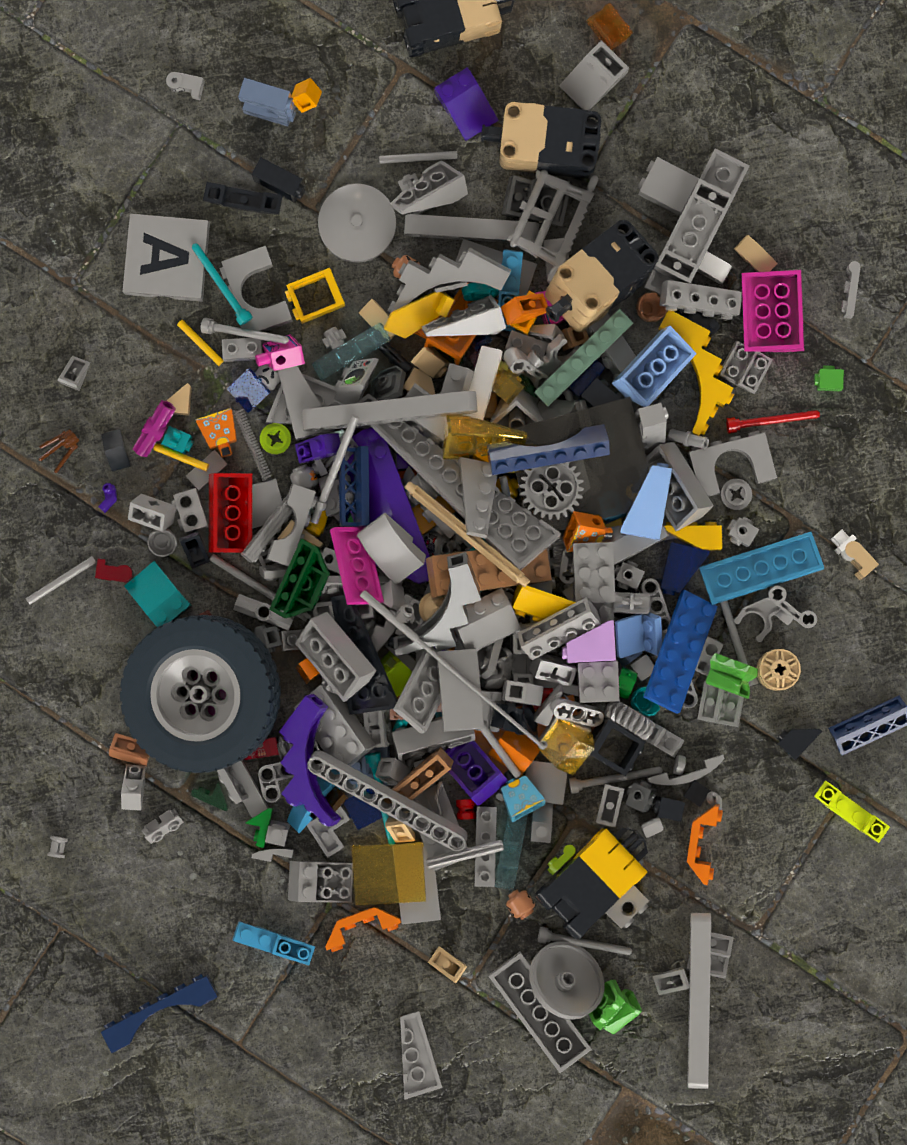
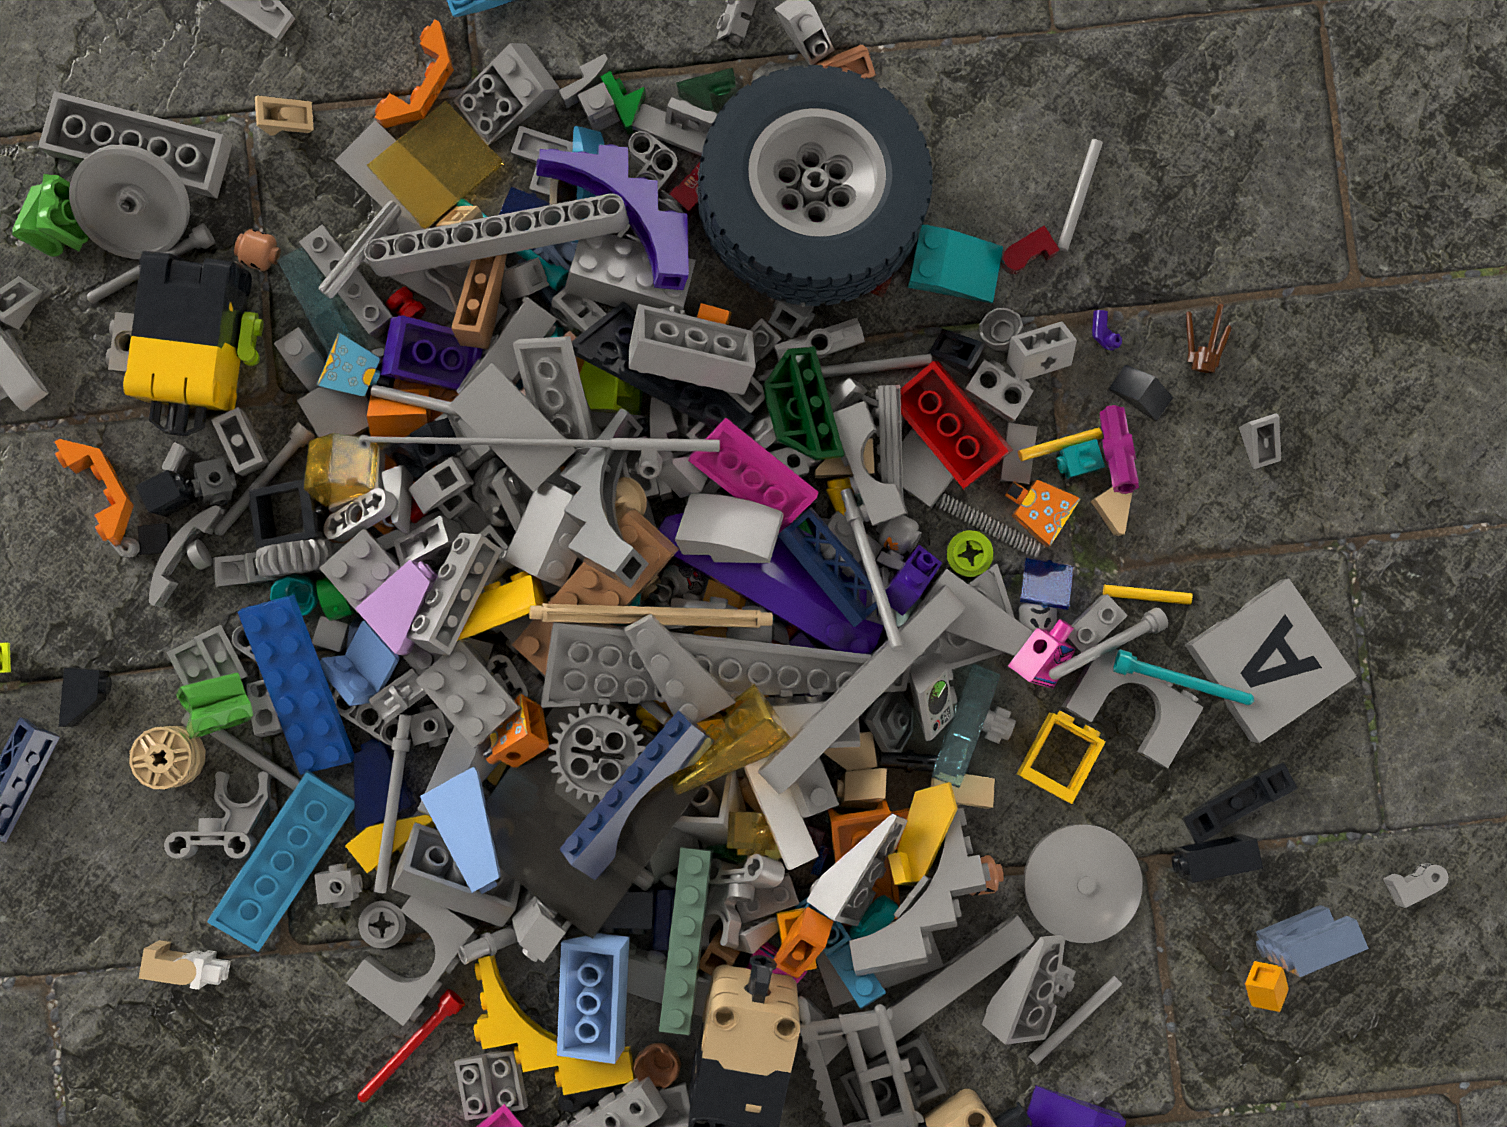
camera: 145 degrees right, 0 degrees up
(651, 576) = (400, 745): none -> light grey bar

